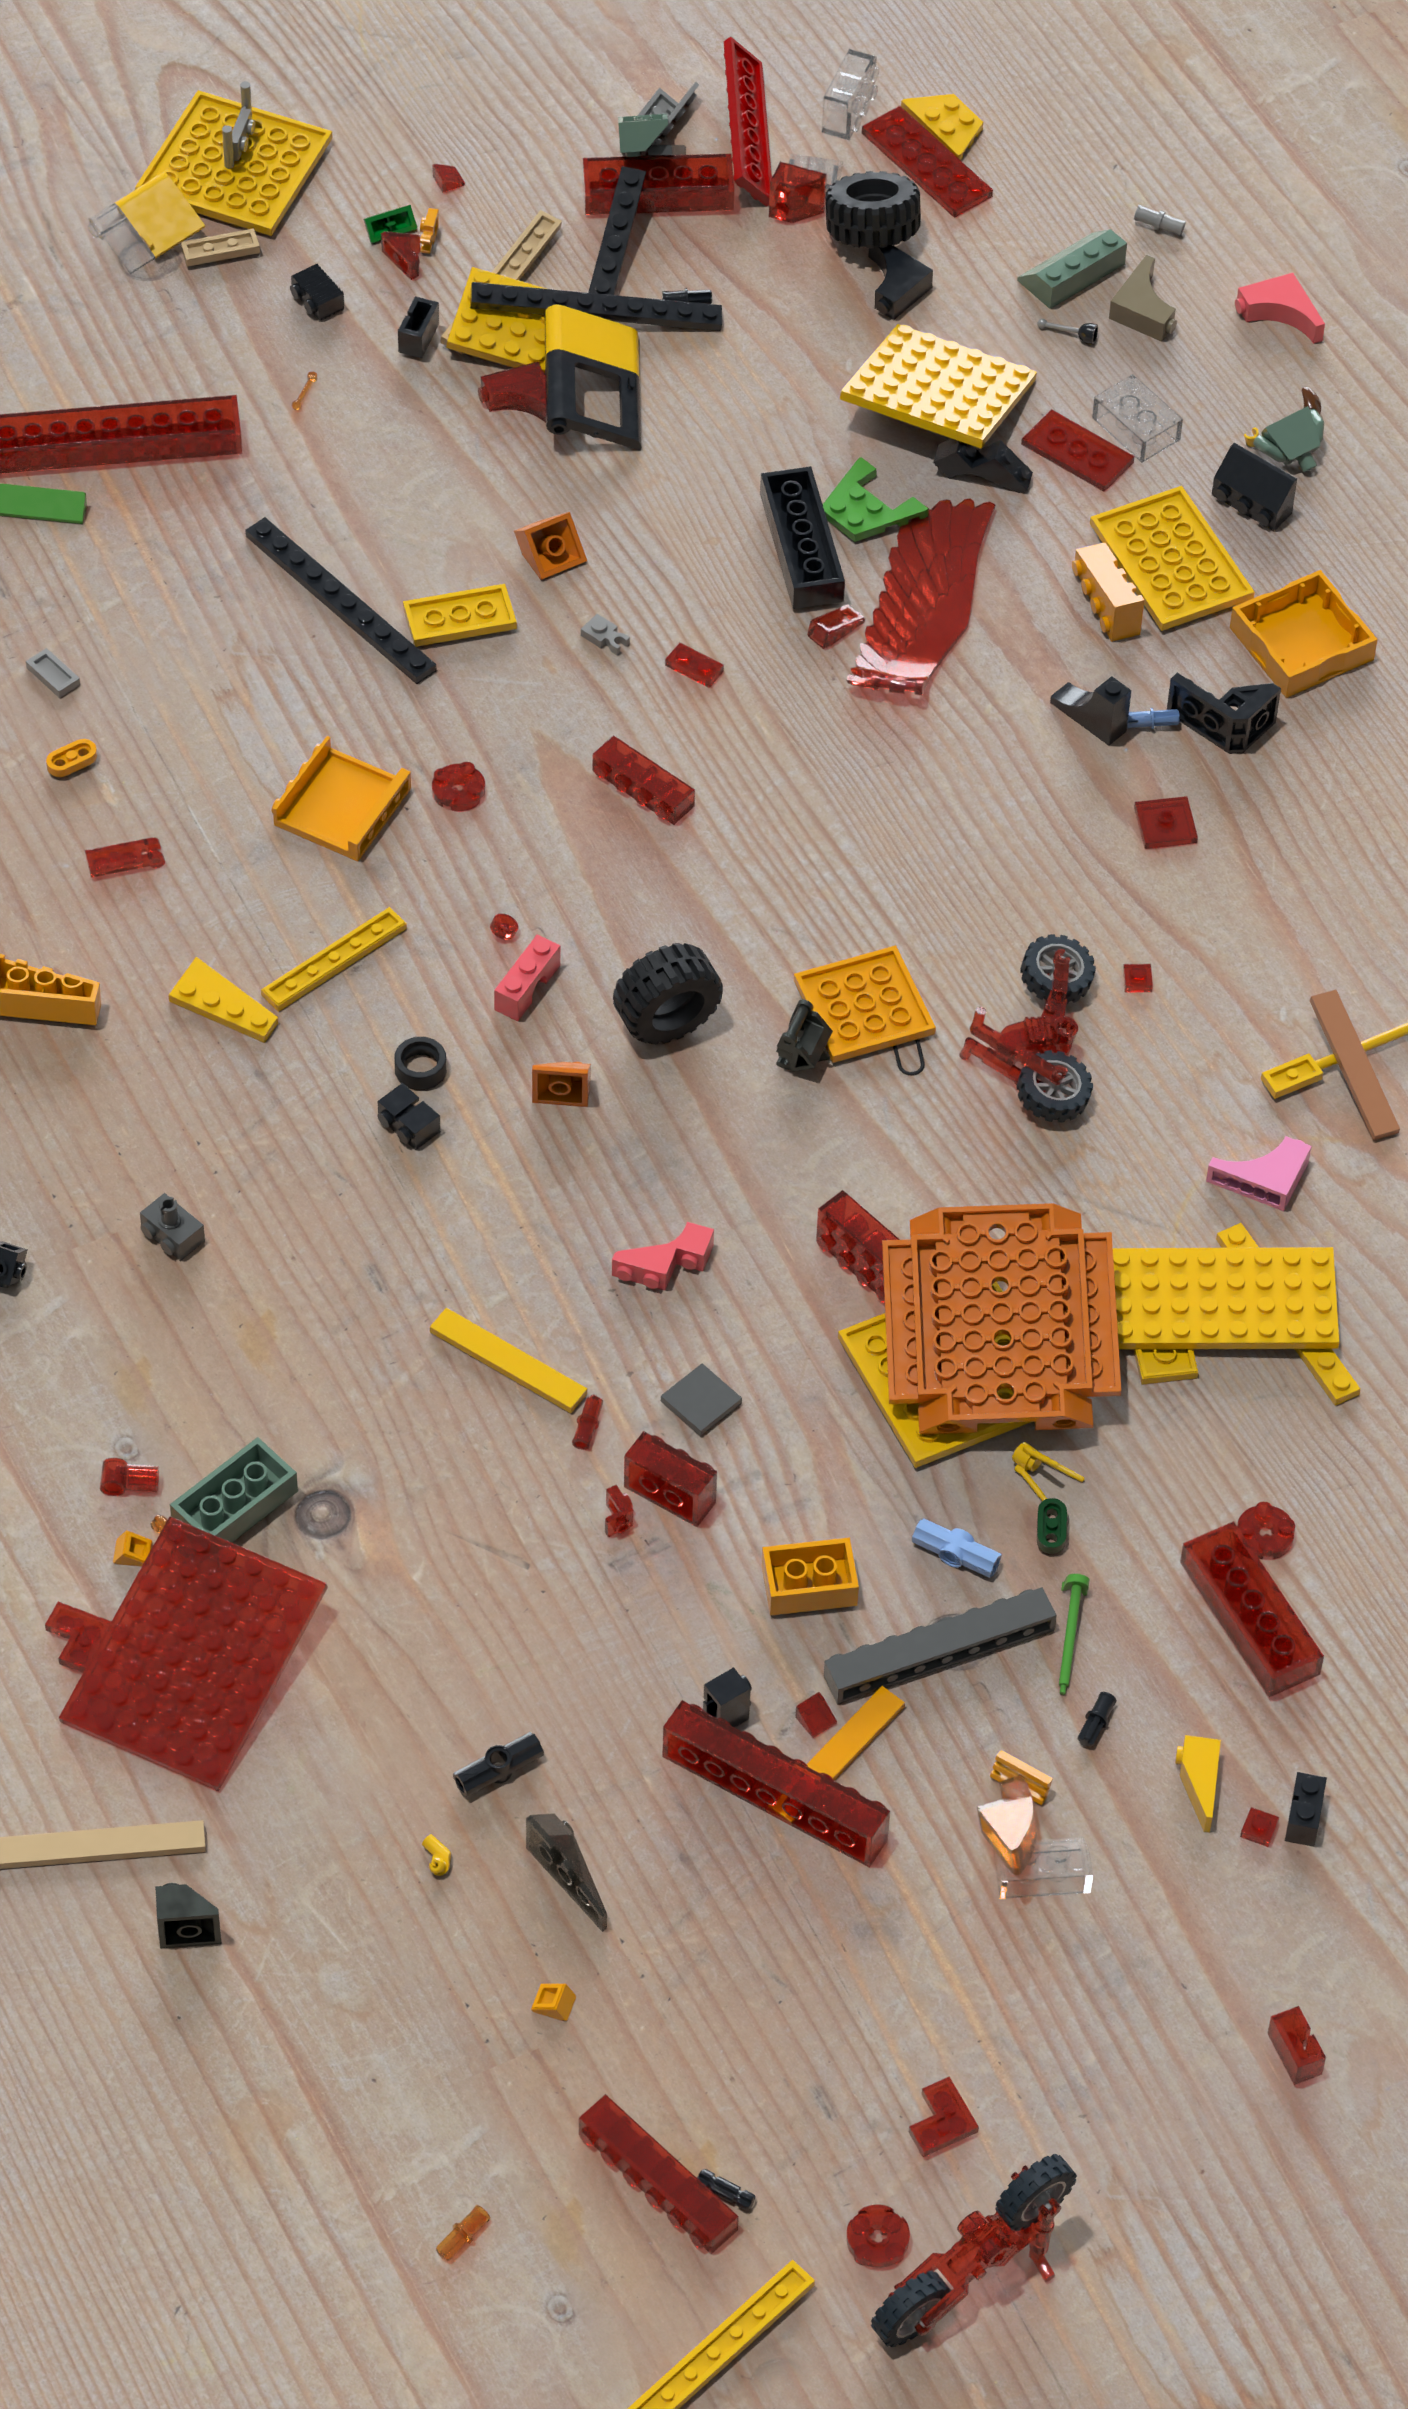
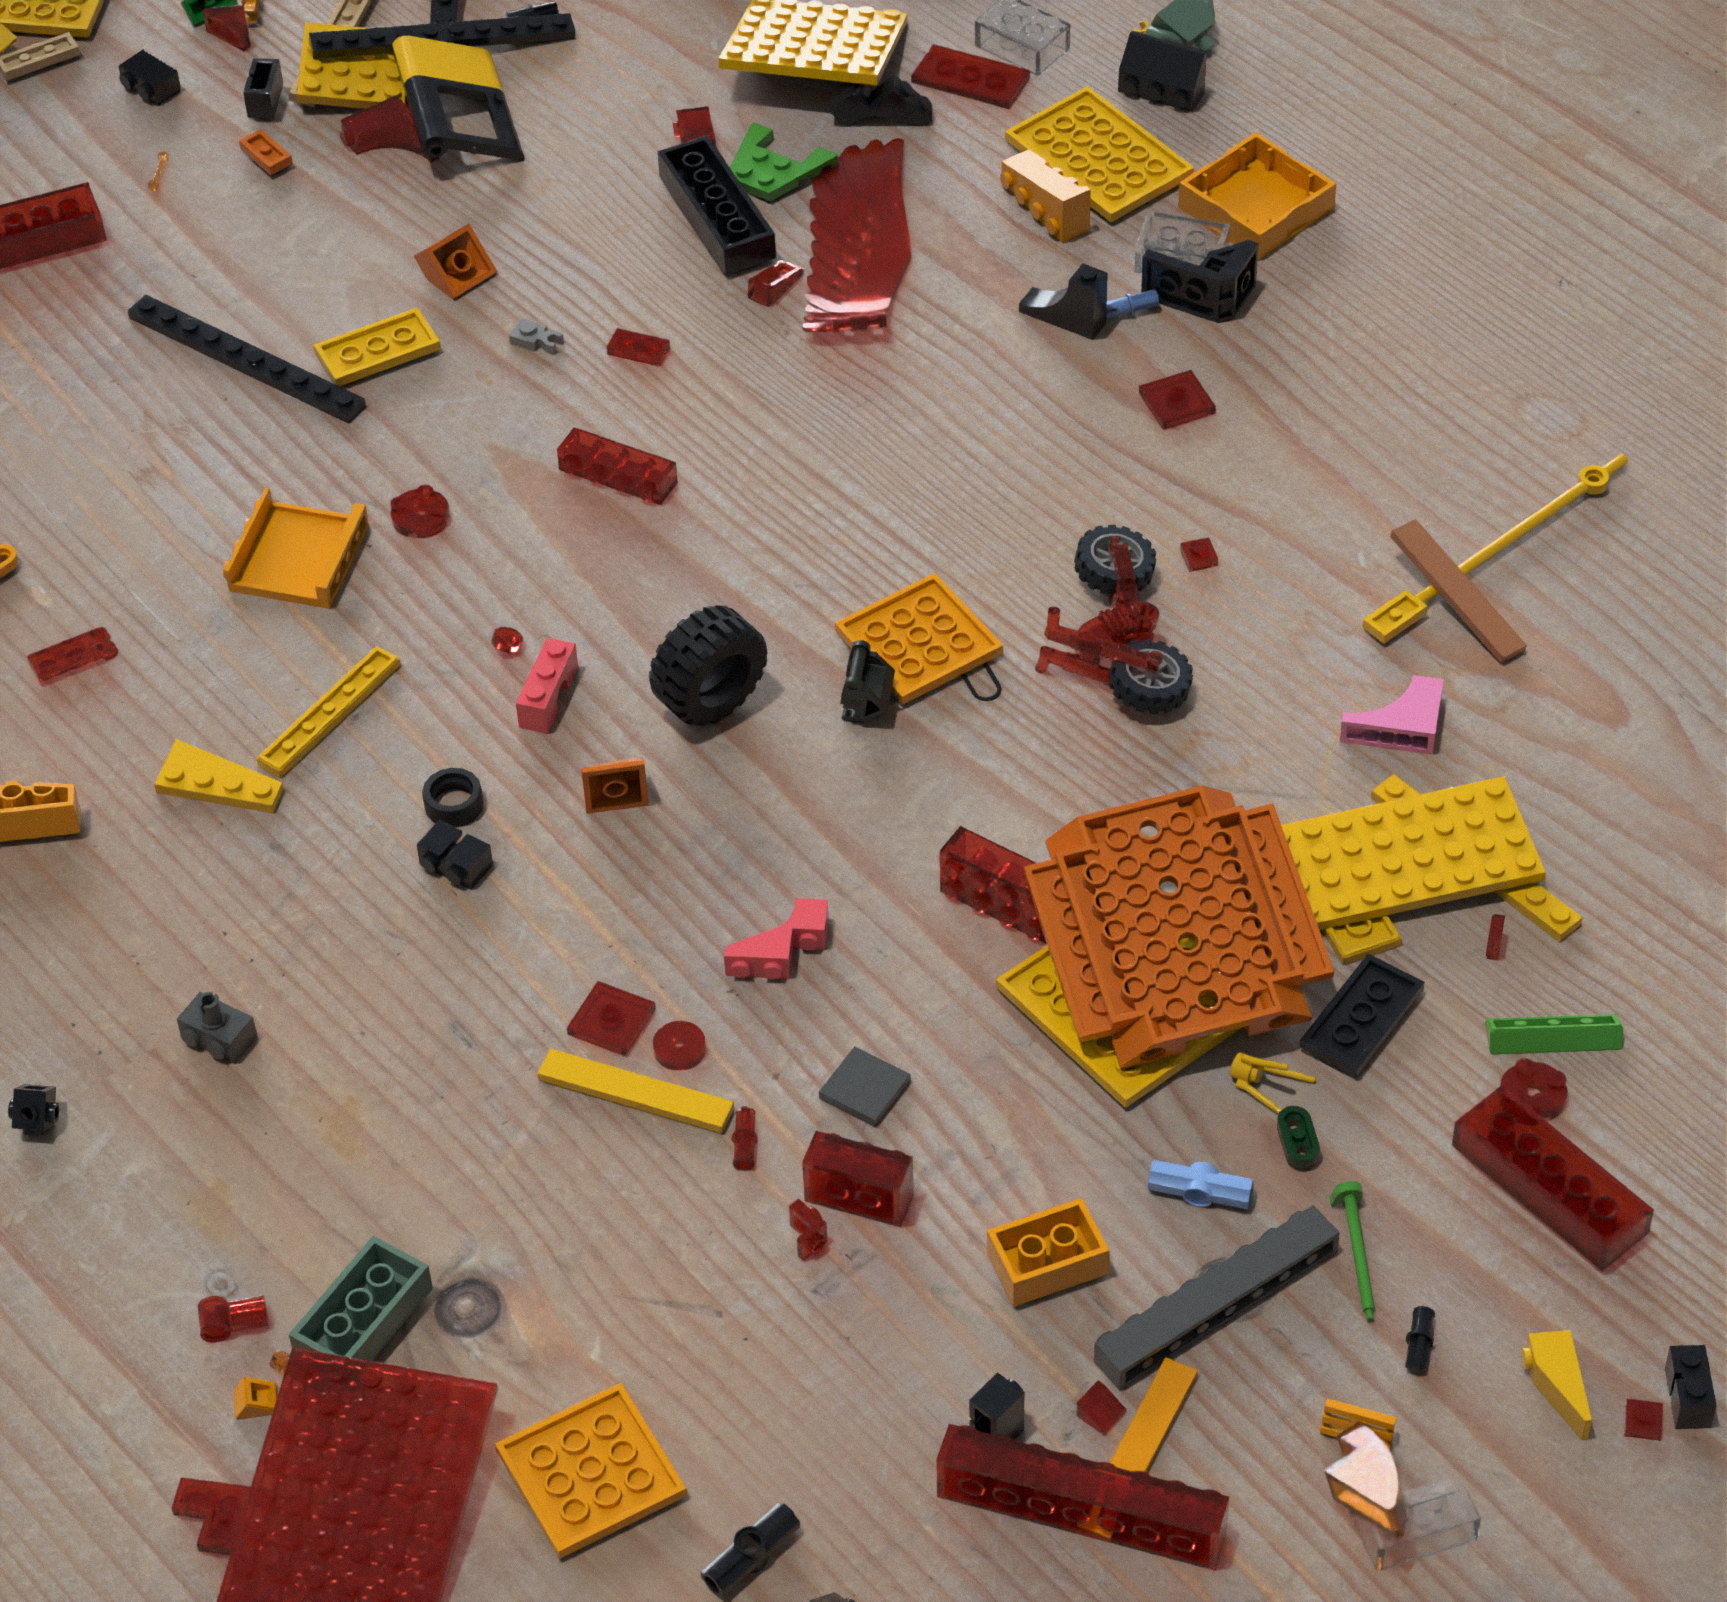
camera: 10 degrees left, 5 degrees down
(387, 1670) = (590, 1470): none -> light orange plate
(406, 393) = (265, 152): none -> orange plate
(504, 1292) = (611, 1018): none -> clear red plate
(555, 1339) = (679, 1057): none -> clear red piece
(804, 451) = (693, 124): none -> clear red slope
(1141, 1432) = (1362, 1015): none -> black plate
(1215, 666) = (1180, 237): none -> clear brick
(1278, 1389) = (1495, 937): none -> clear red tile
(1301, 1485) = (1554, 1034): none -> bright green slope

